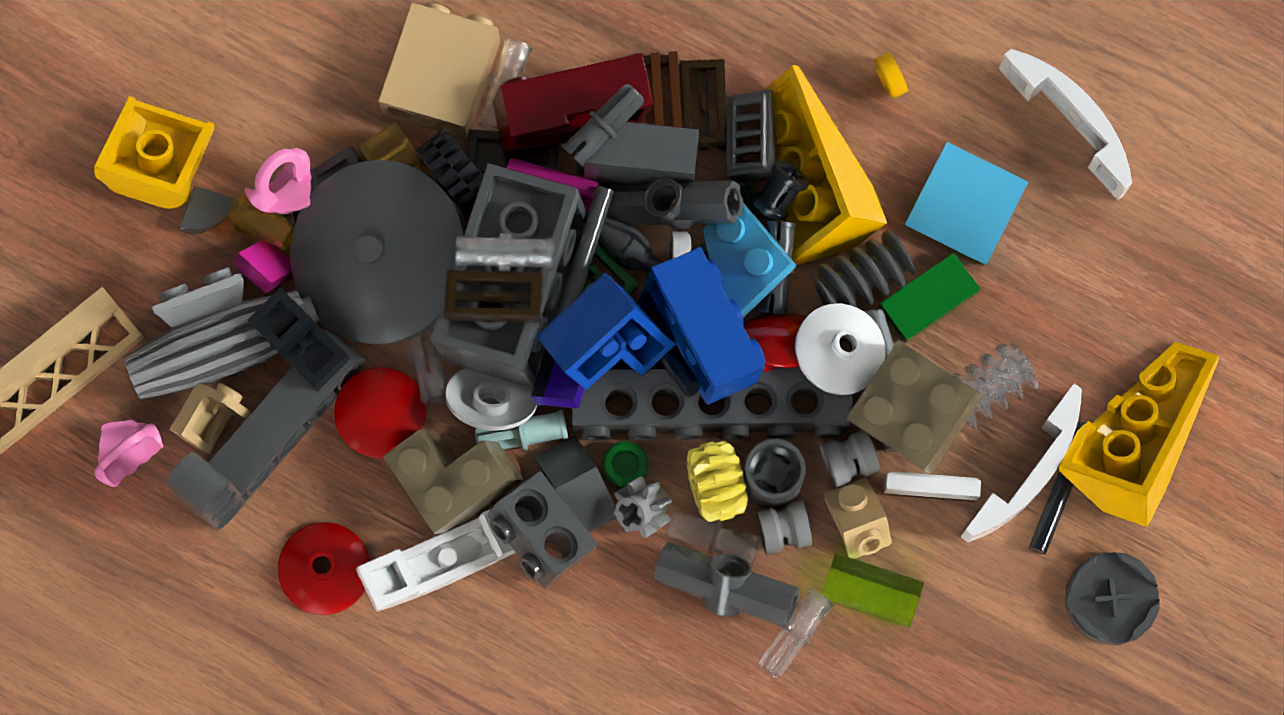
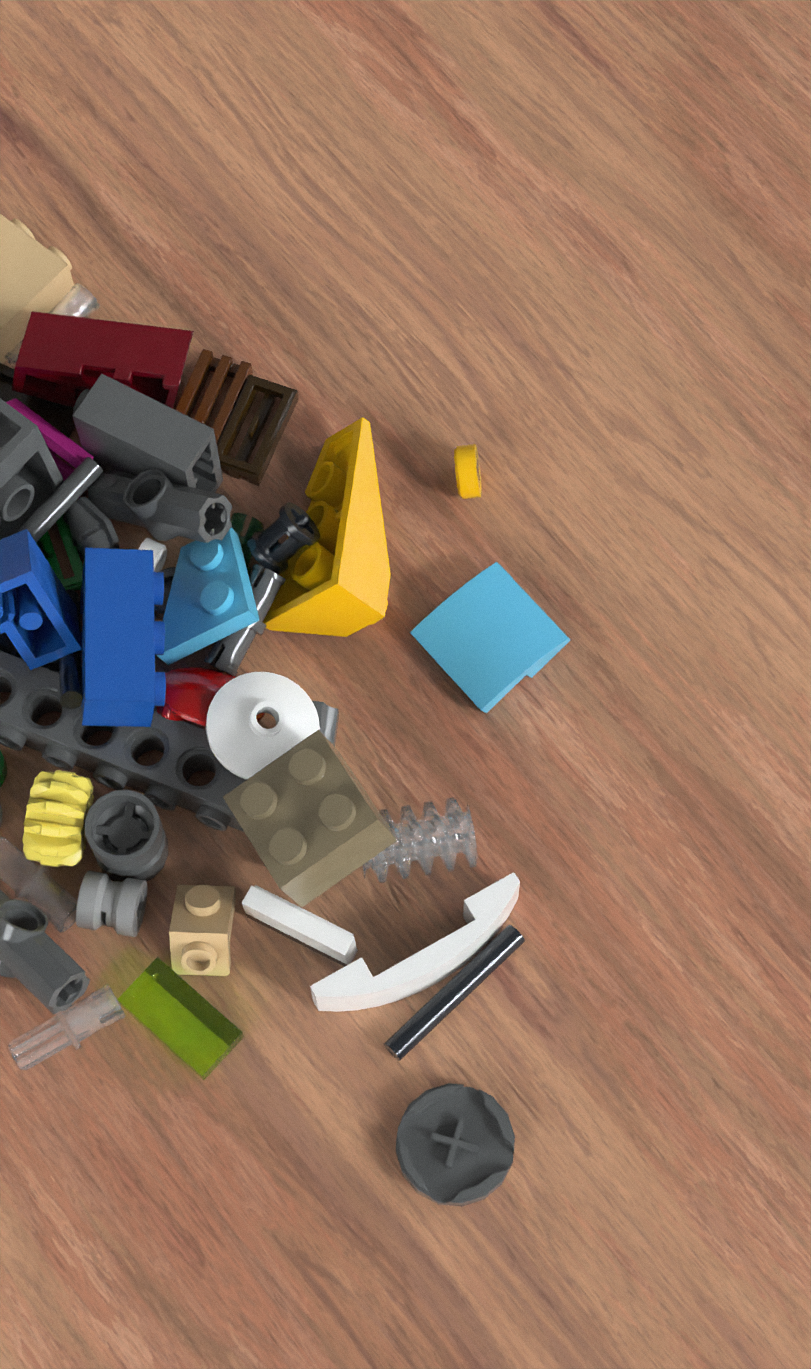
camera: 25 degrees right, 10 degrees down
(604, 123) = (108, 380): dark grey axle -> none
(753, 170) = (258, 494): dark grey slope -> none
(850, 458) = (210, 859): light grey wheel -> none
(864, 271) = (336, 663): dark grey piece -> none
(929, 297) = (401, 722): green tile -> none
(1033, 75) = (631, 534): white slope -> none
(1135, 444) = (558, 978): yellow wedge -> none

